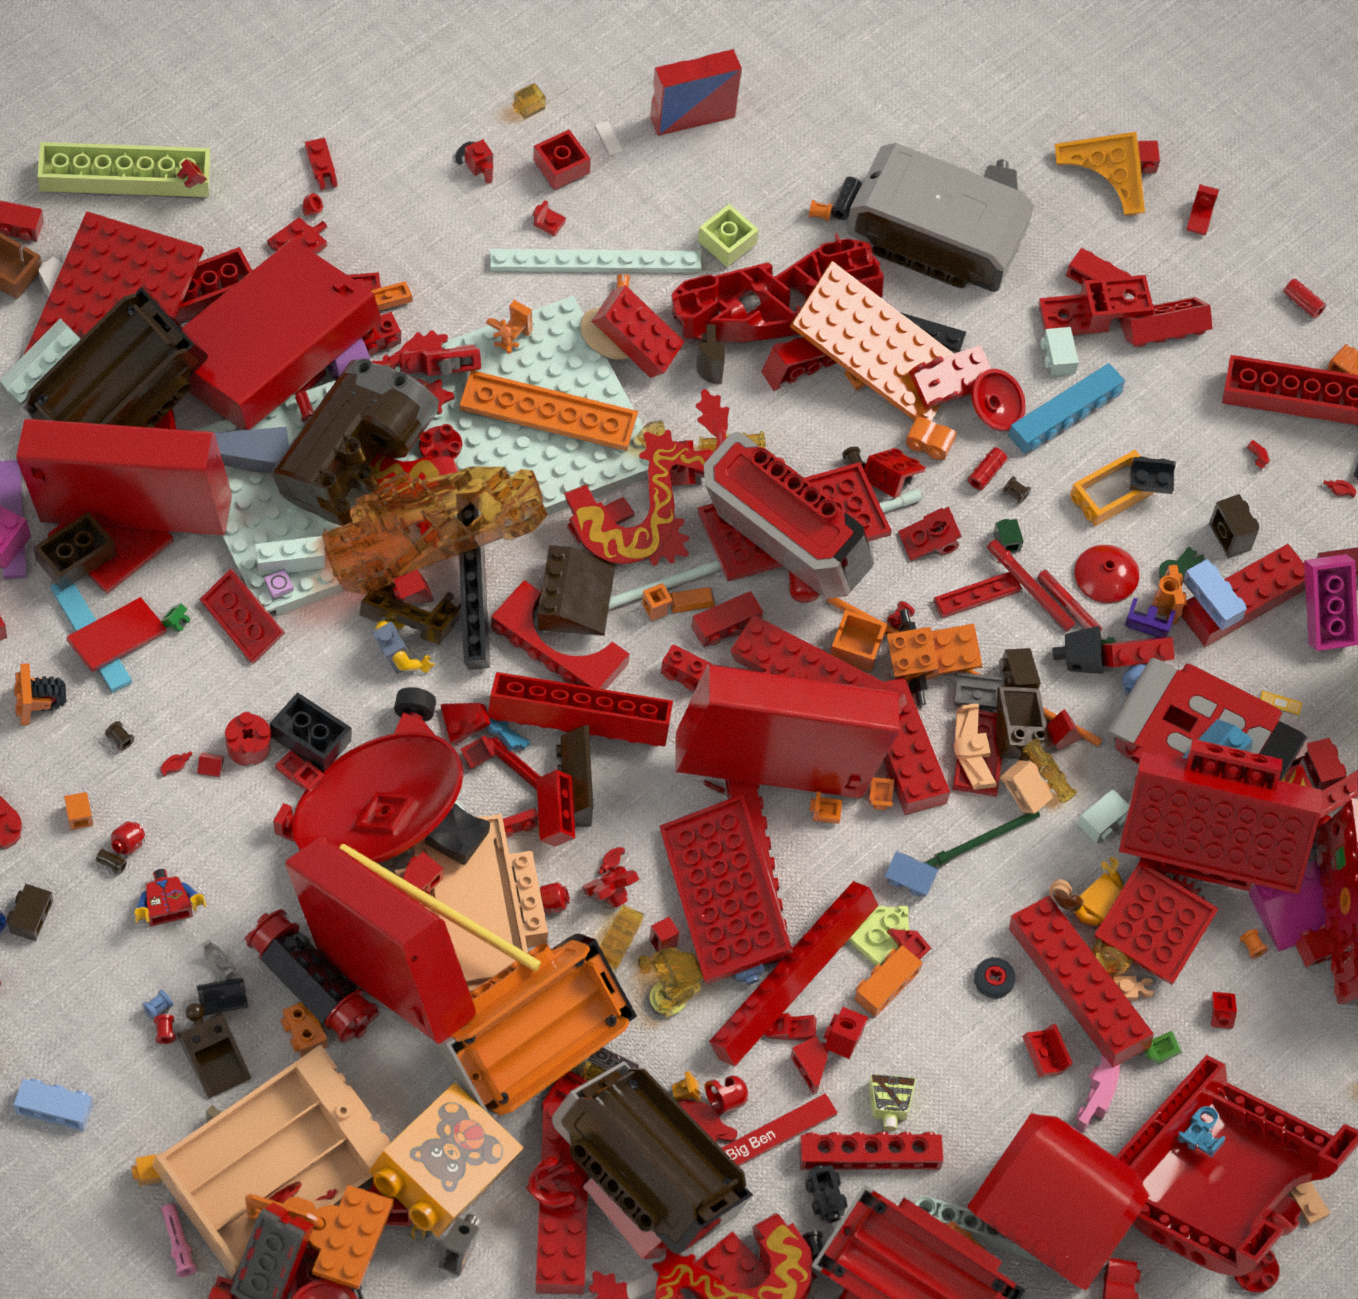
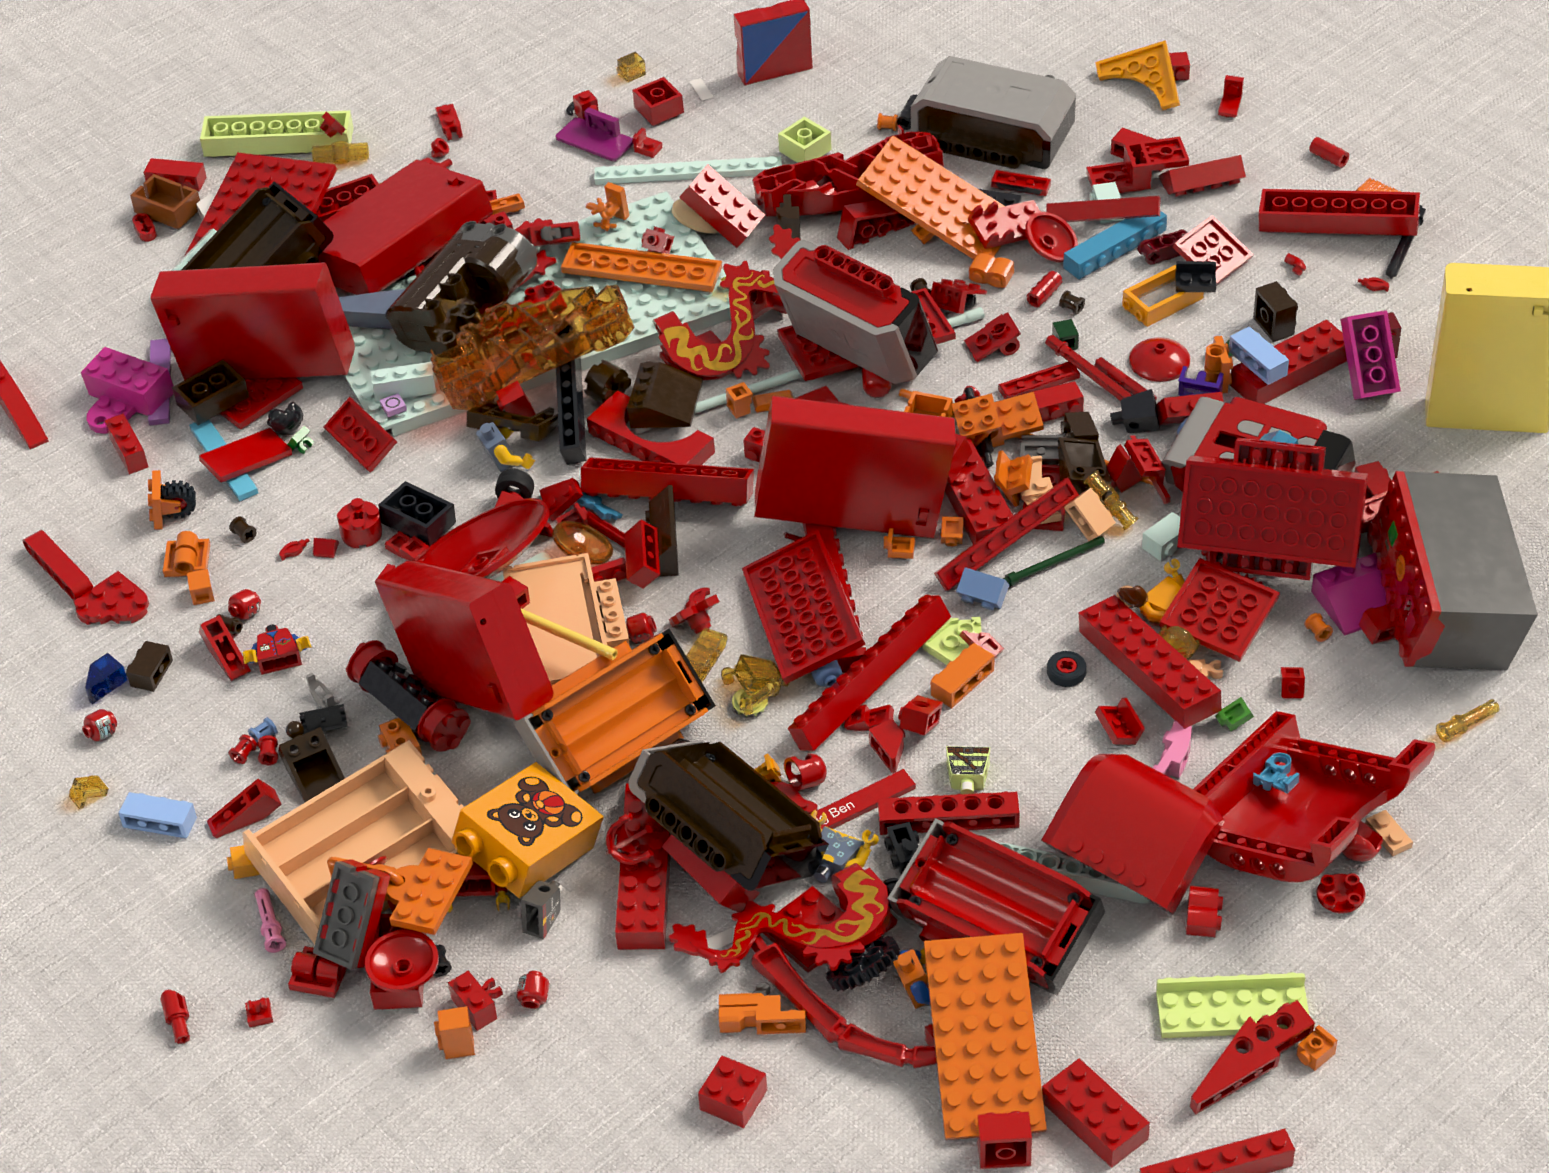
camera: 10 degrees right, 15 degrees down
(60, 768) = (186, 555): none -> orange plate
(109, 895) = (223, 648): none -> red slope
(138, 1026) = (251, 746): none -> red bush
(144, 1103) = (246, 808): none -> red slope
(157, 589) = (285, 421): none -> black hair
(198, 203) = (340, 152): none -> clear yellow piece
(458, 835) = (544, 566): black brick -> none
(490, 202) = (596, 135): none -> magenta bracket
(491, 785) = (578, 538): none -> clear orange dish
(512, 568) = (605, 381): none -> dark brown brick
(566, 377) = (657, 240): none -> brick
(664, 934) = (745, 644): red piece -> none
(768, 1194) = (842, 850): none -> torso
(939, 807) = (1007, 533): none -> red tile
(949, 729) = (1013, 475): none -> orange bracket
(966, 313) = (1021, 183): none -> red plate
(997, 627) = (1058, 400): none -> red brick
(1057, 367) = (1106, 209): none -> red tile
(1090, 727) = (1148, 464): none -> red plate
(1109, 423) = (1160, 247): none -> dark red piece
(1172, 431) = (1216, 244): none -> plate

